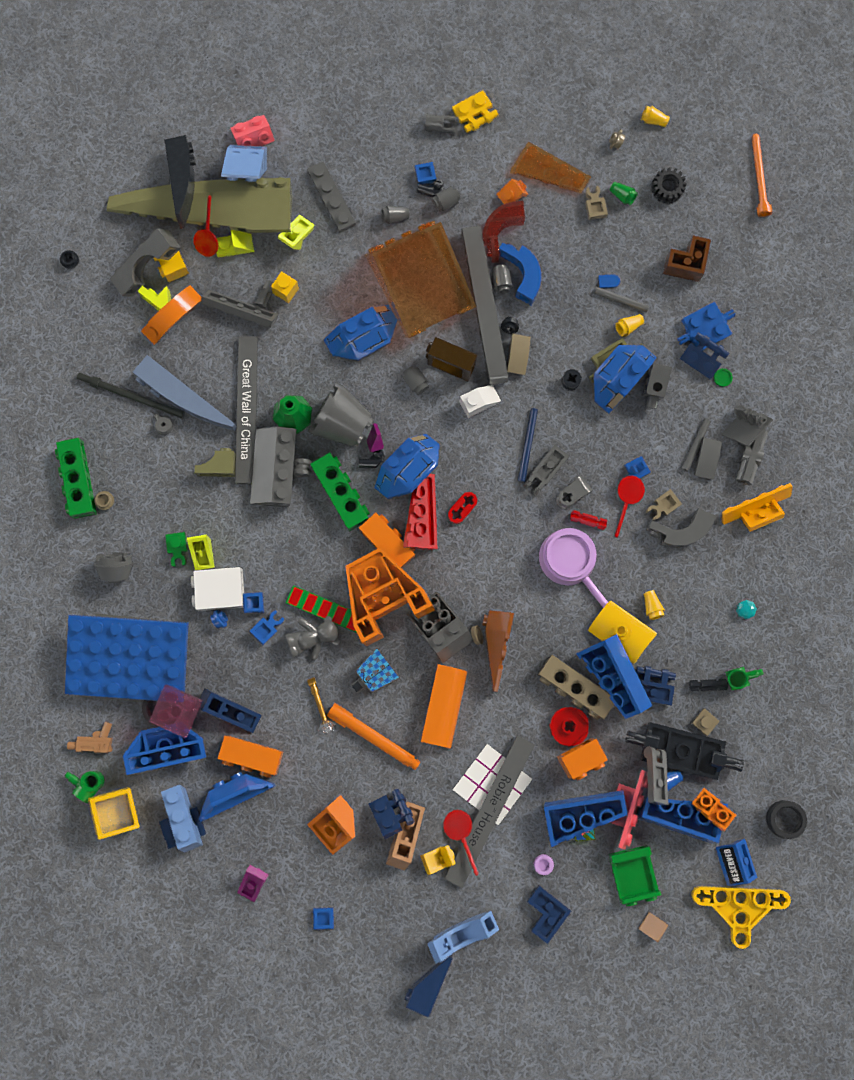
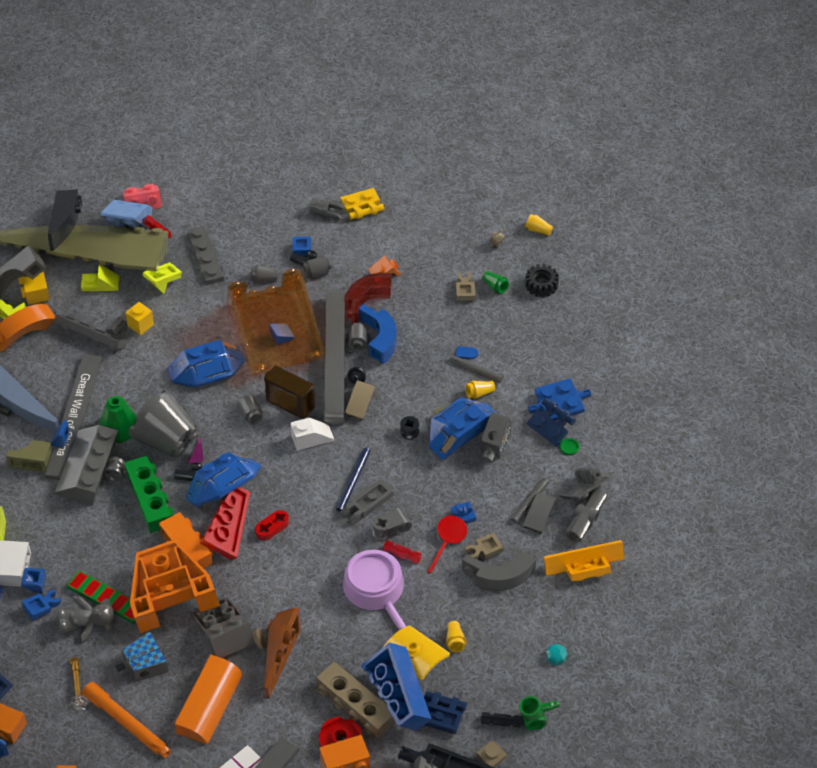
camera: 15 degrees right, 30 degrees down
(205, 240) = (73, 272): red piece -> none
(240, 438) = (61, 435): none -> blue slope
(275, 172) = (149, 222): none -> red axle
(427, 284) = (281, 333): none -> slope
(545, 167) = (424, 255): clear orange wing -> none
(688, 264) = (548, 343): reddish brown brick -> none
(764, 207) = (636, 309): orange piece -> none

